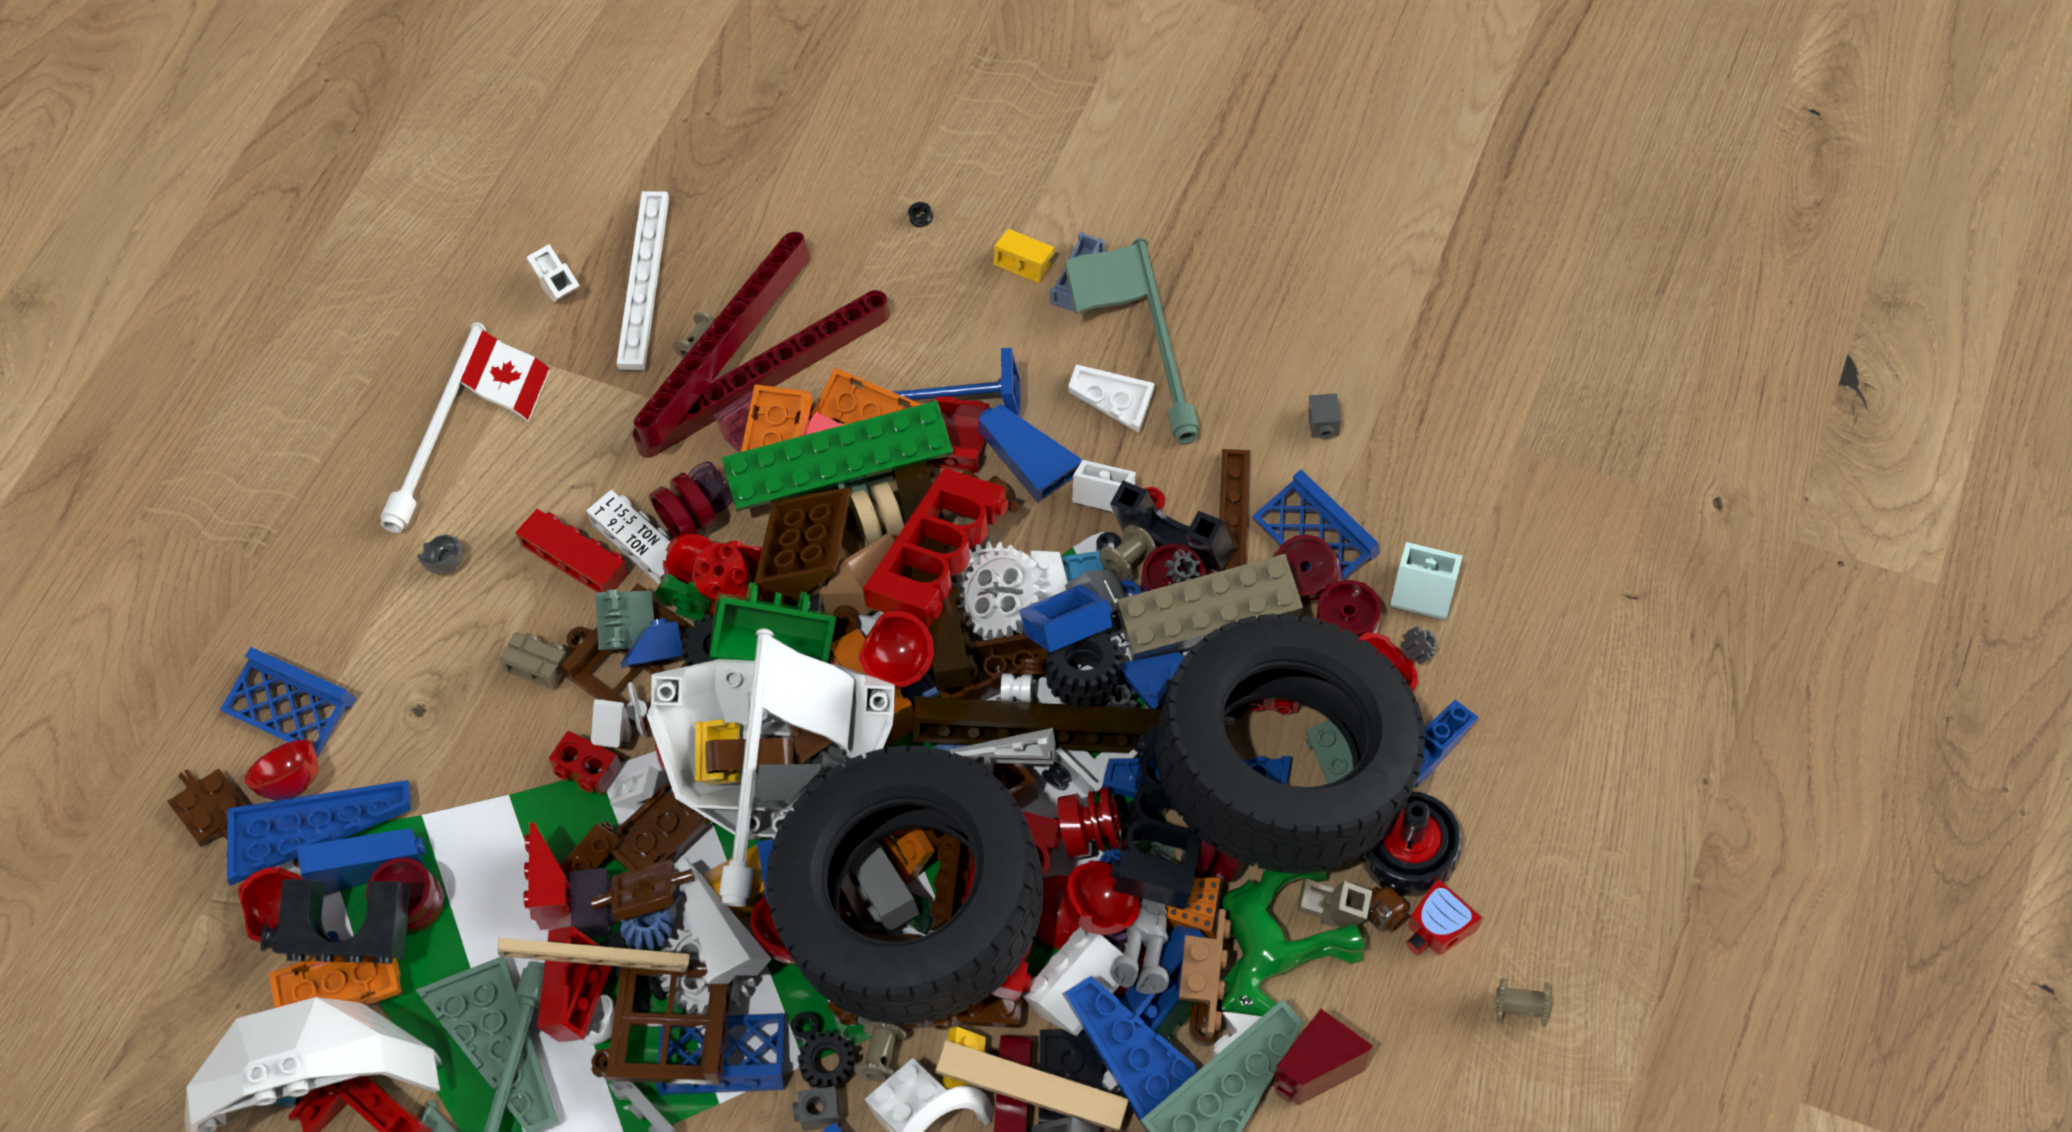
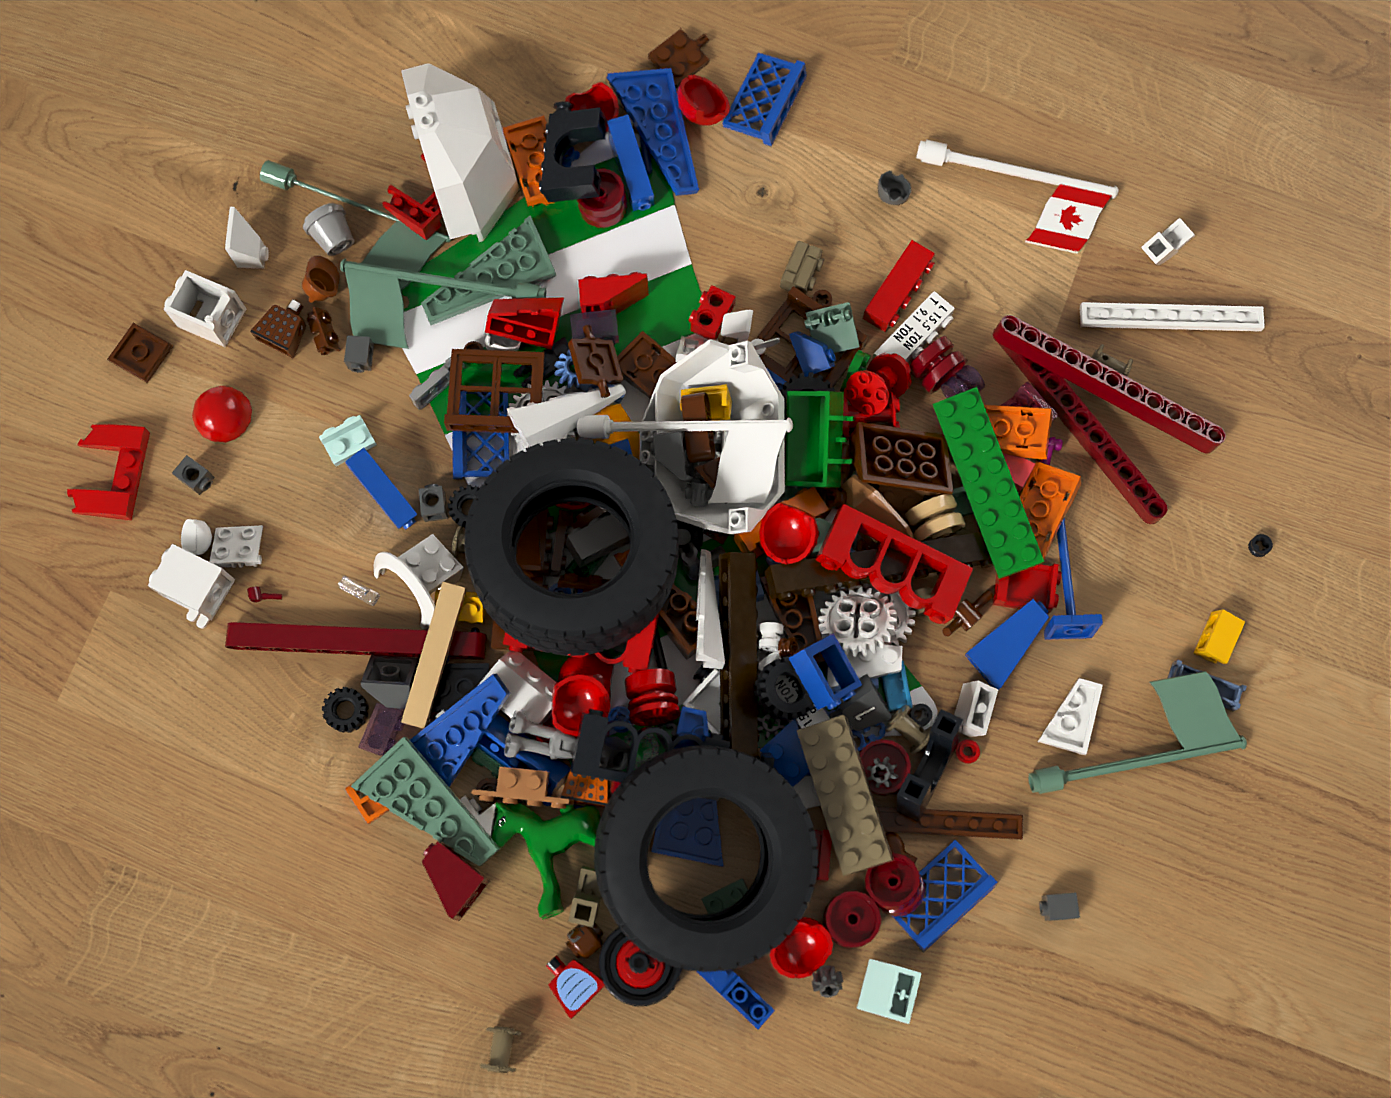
camera: 85 degrees right, 15 degrees up
(591, 848) = (636, 324): reddish brown hinge -> none
(593, 955) = (533, 328): tan tile -> none

